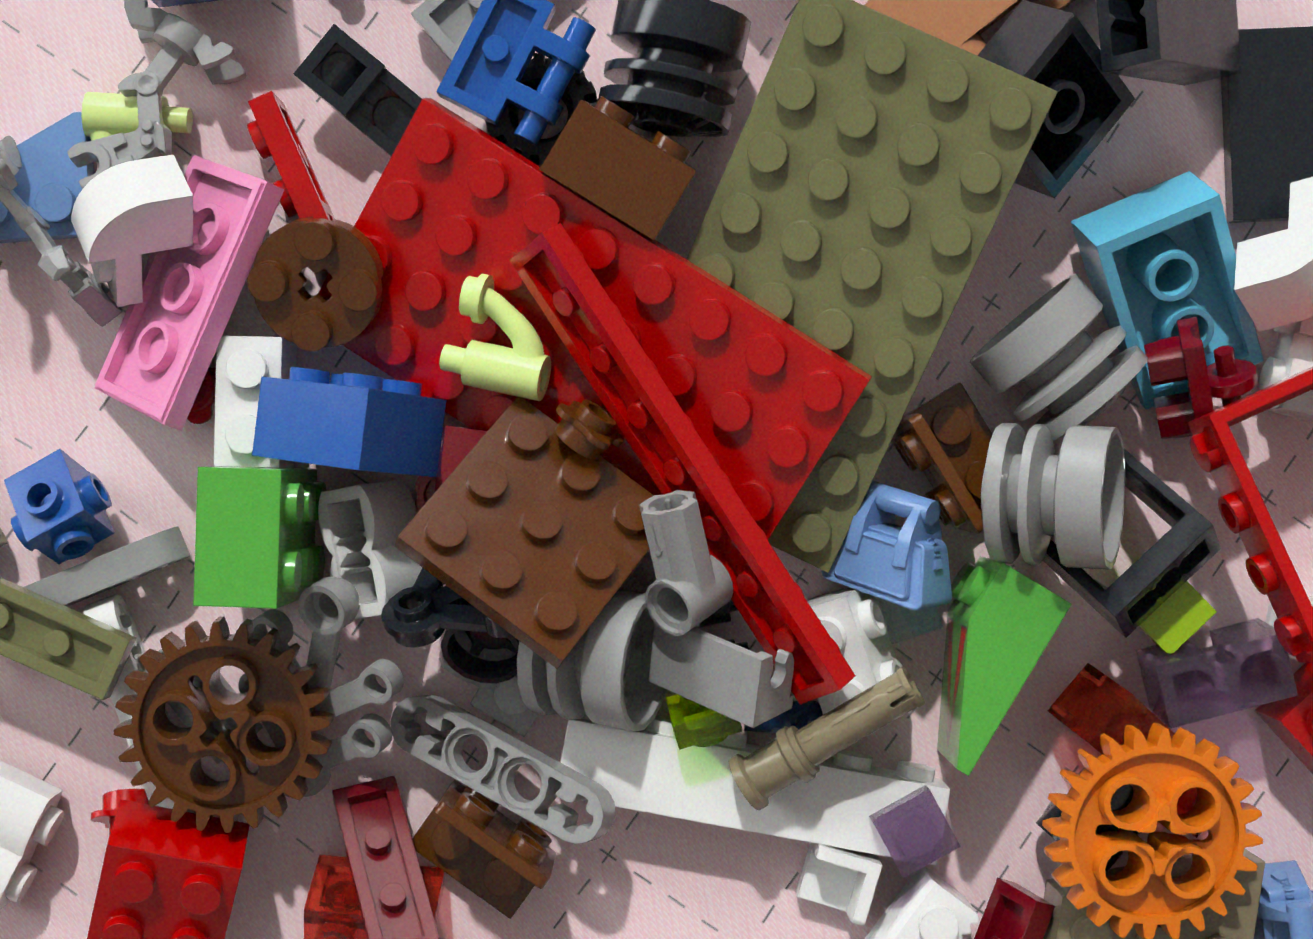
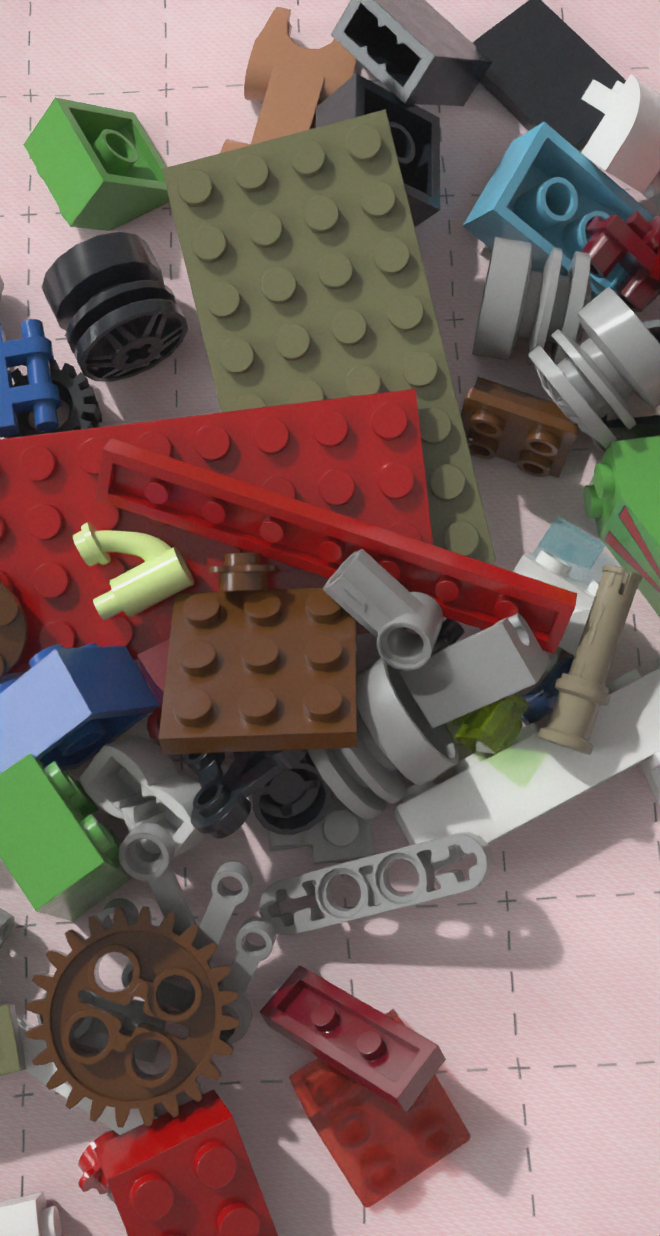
camera: 35 degrees left, 15 degrees down
(485, 848) = (412, 965): reddish brown bracket -> none
(618, 167) = (125, 382): reddish brown brick -> none
(894, 561) = (535, 513): medium blue piece -> none

